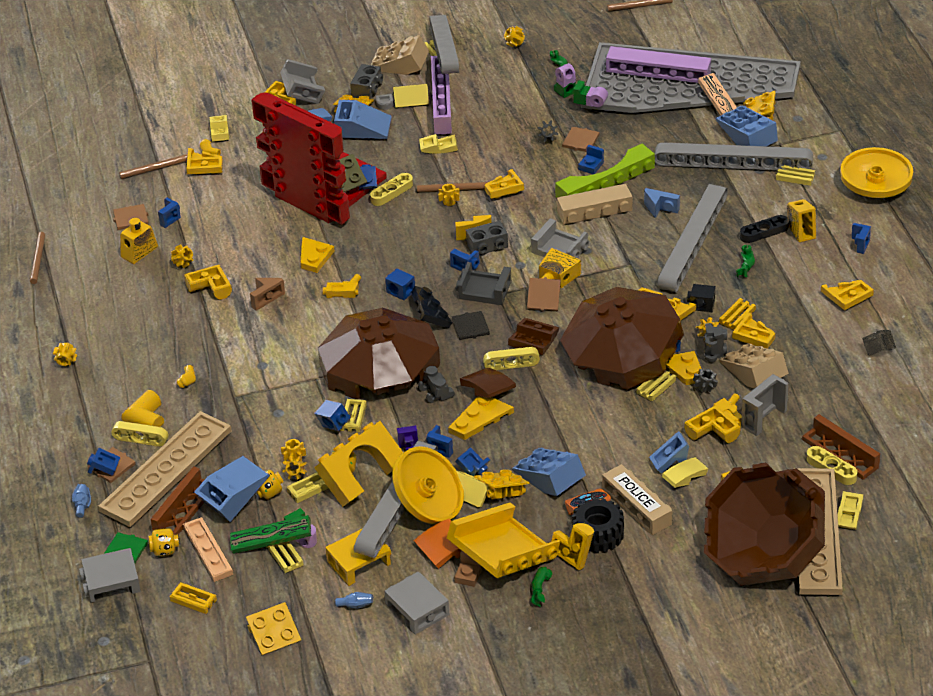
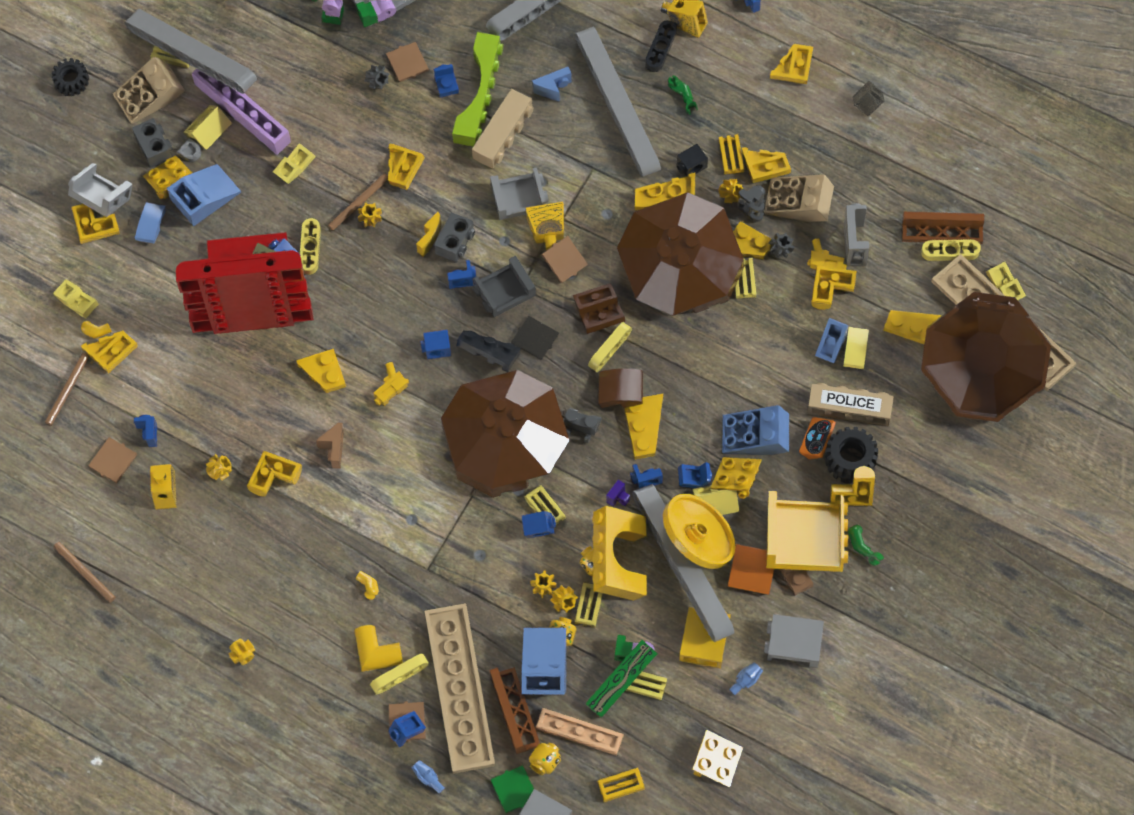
camera: 45 degrees left, 25 degrees up
(362, 25) = (69, 67): none -> black tyre

